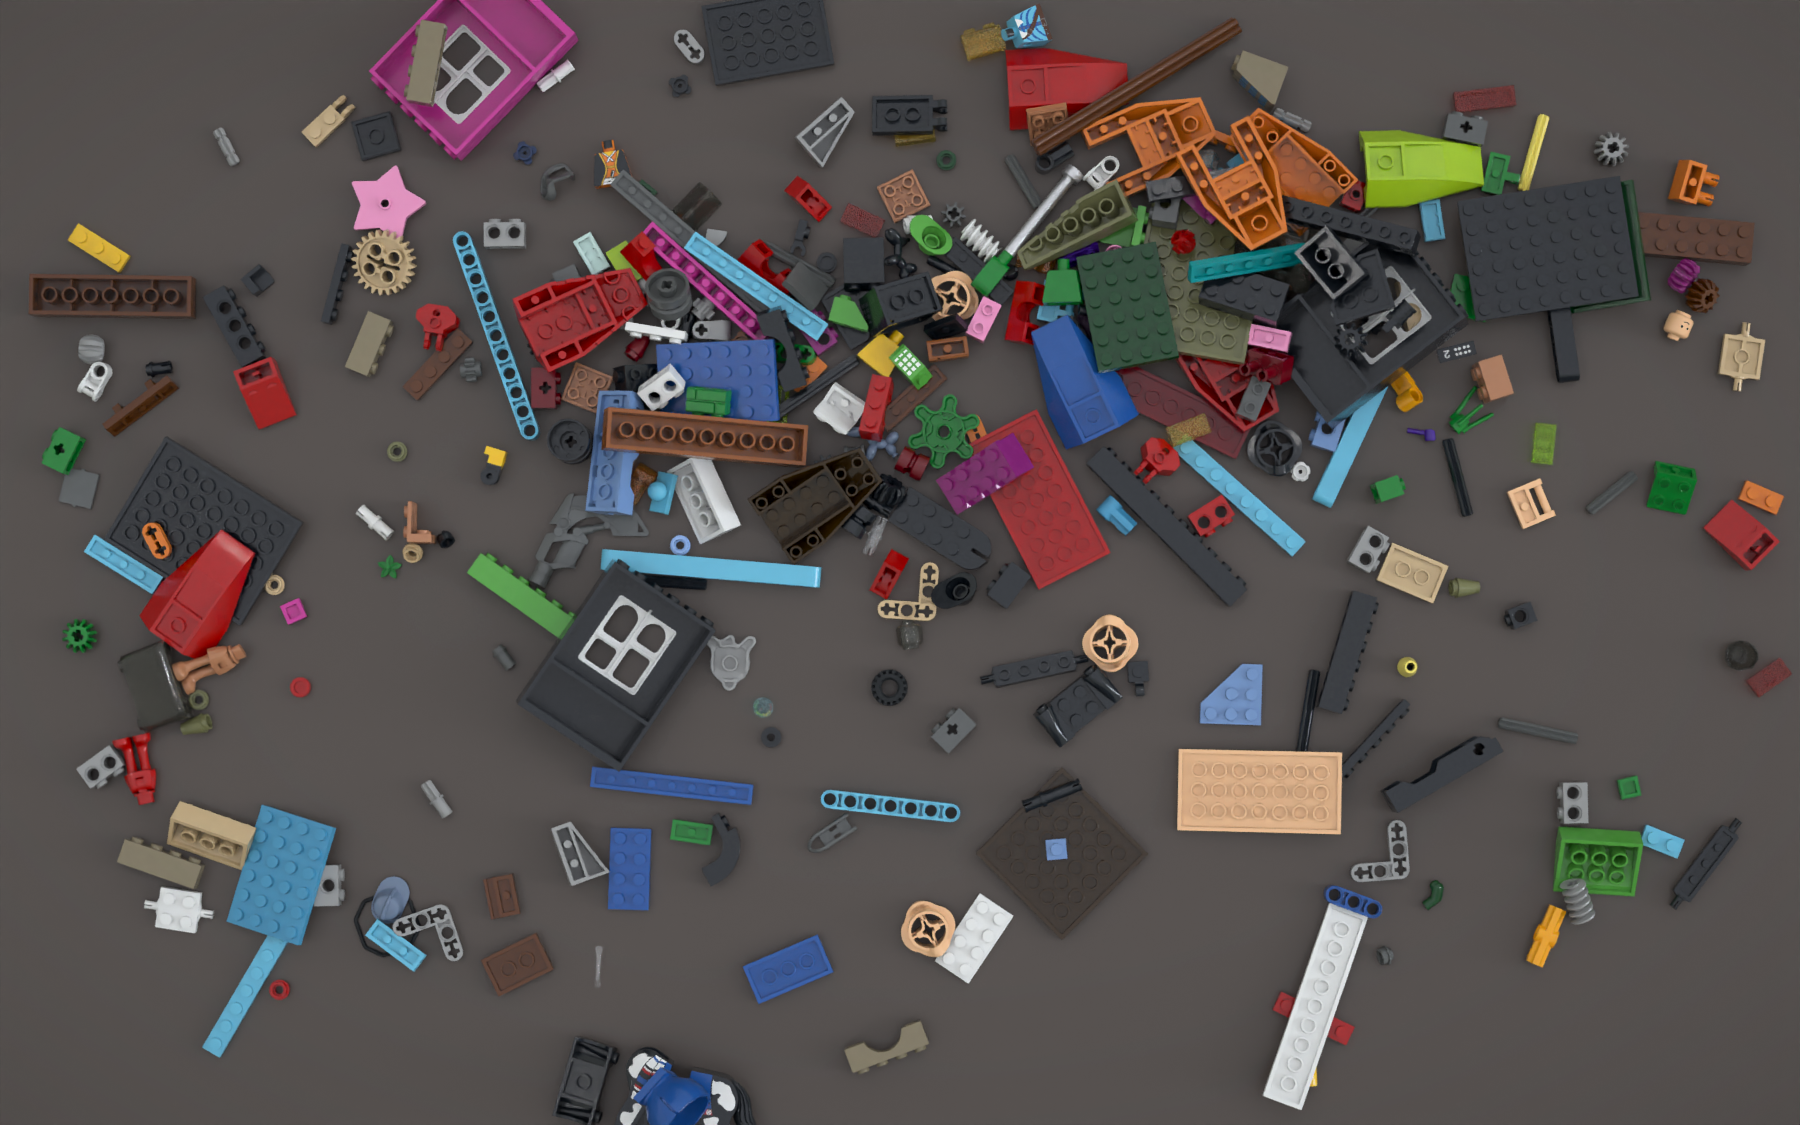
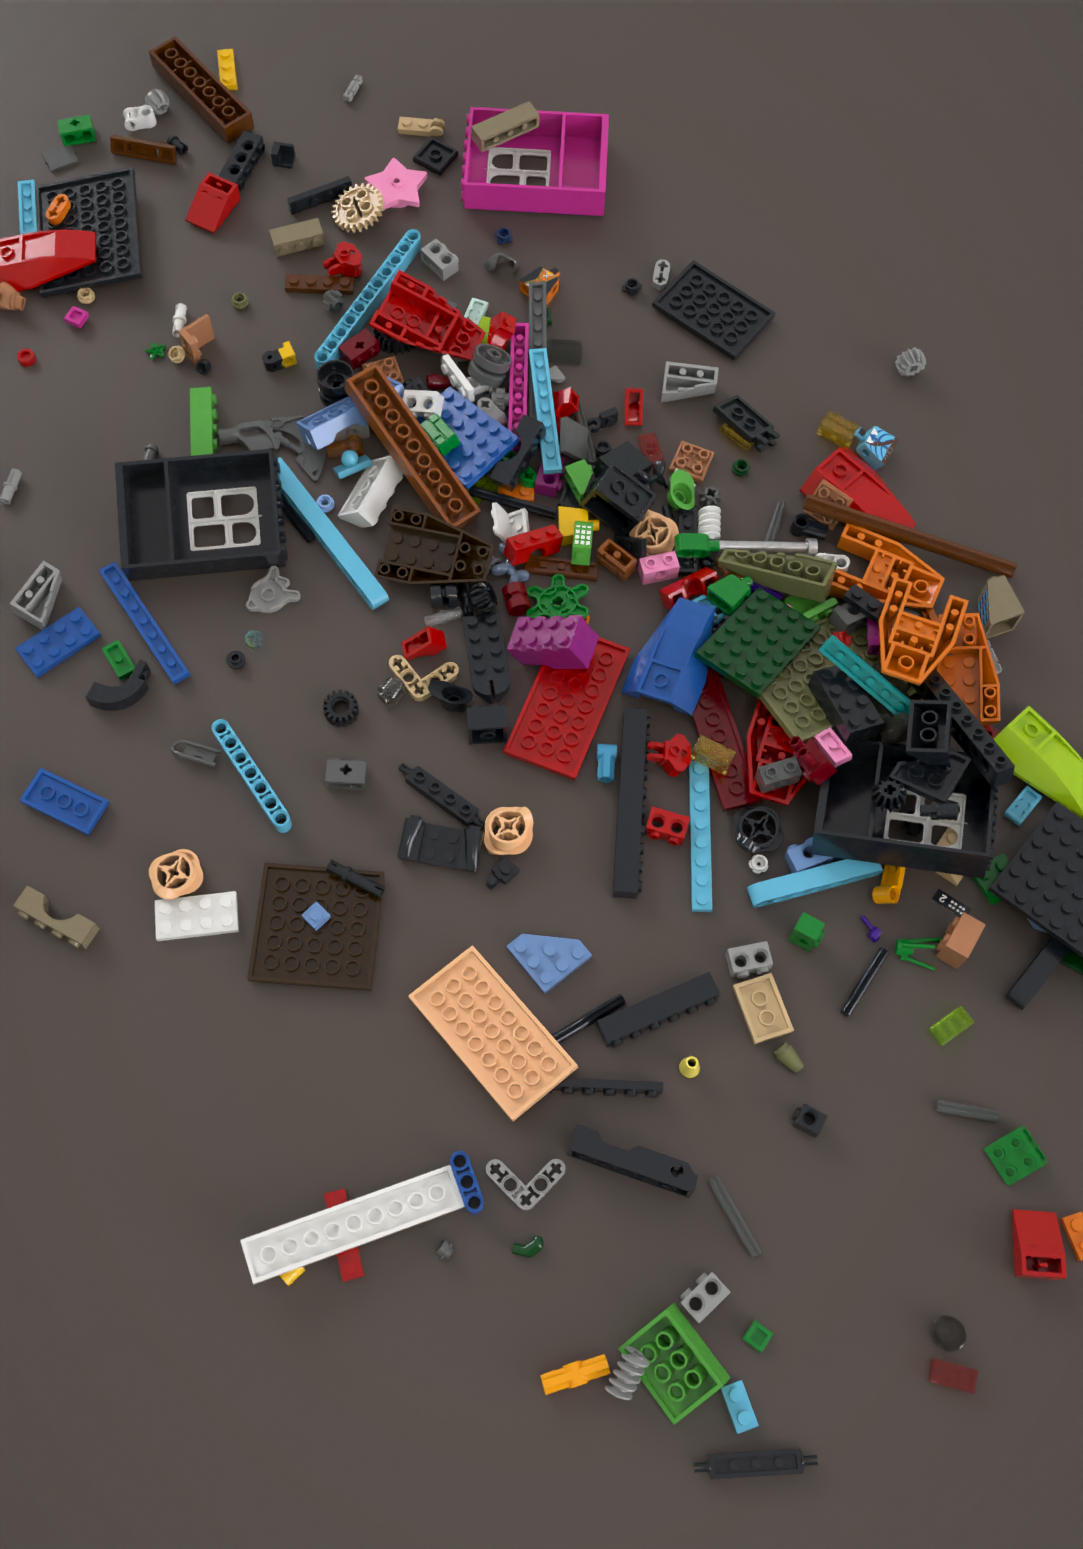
camera: 45 degrees right, 20 degrees down
(555, 76) = (568, 218): white axle -> none
(1525, 507) = (893, 1050): light nougat plate -> none

